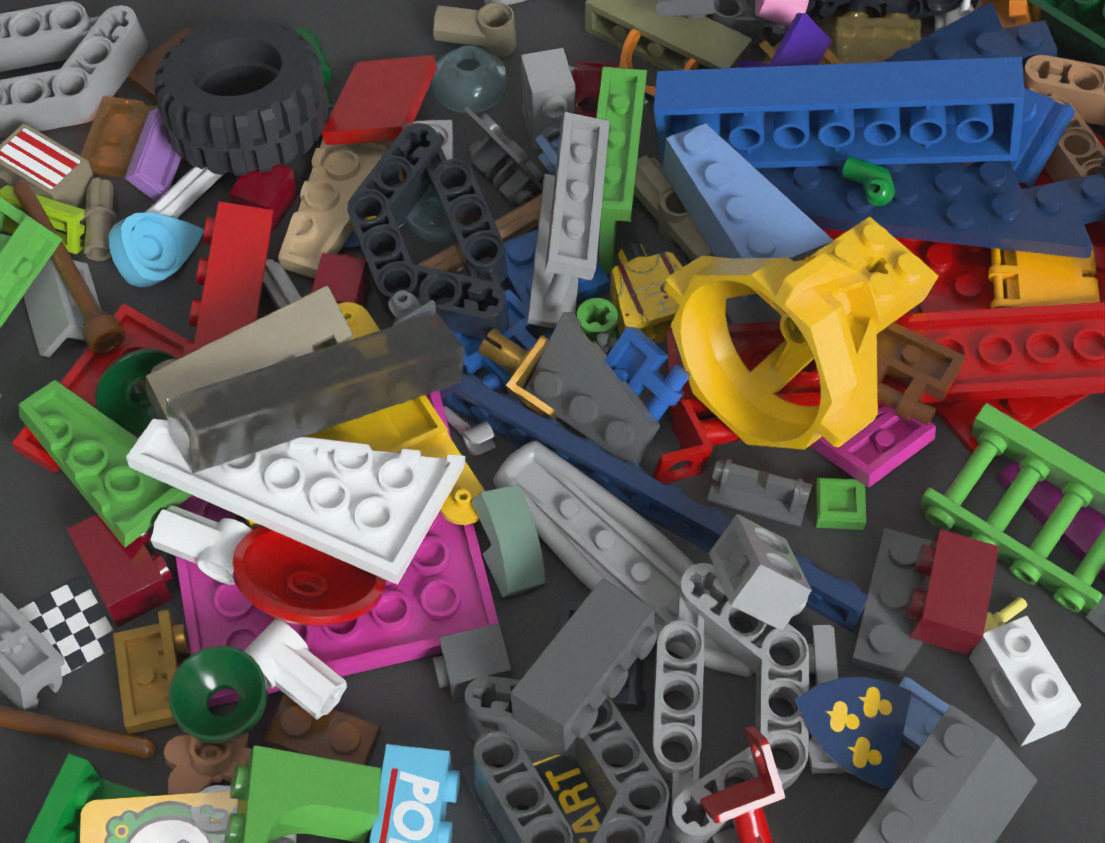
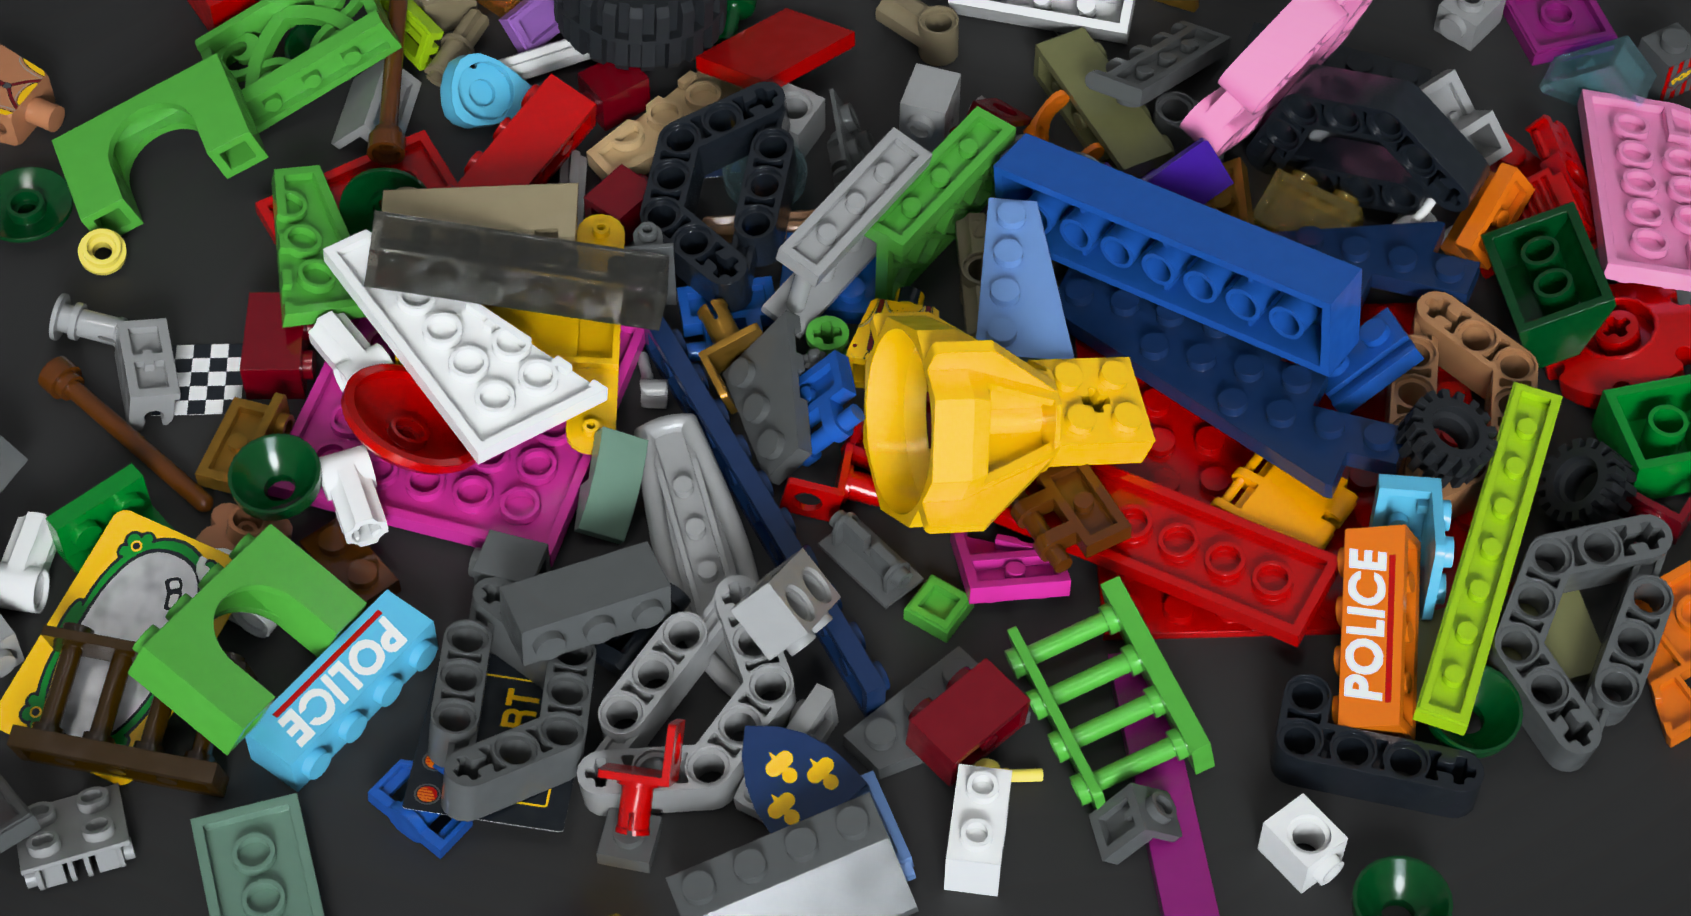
camera: 30 degrees right, 5 degrees down
(475, 88) = (875, 81): clear light blue piece -> none
(875, 180) = (1174, 330): green arm -> none

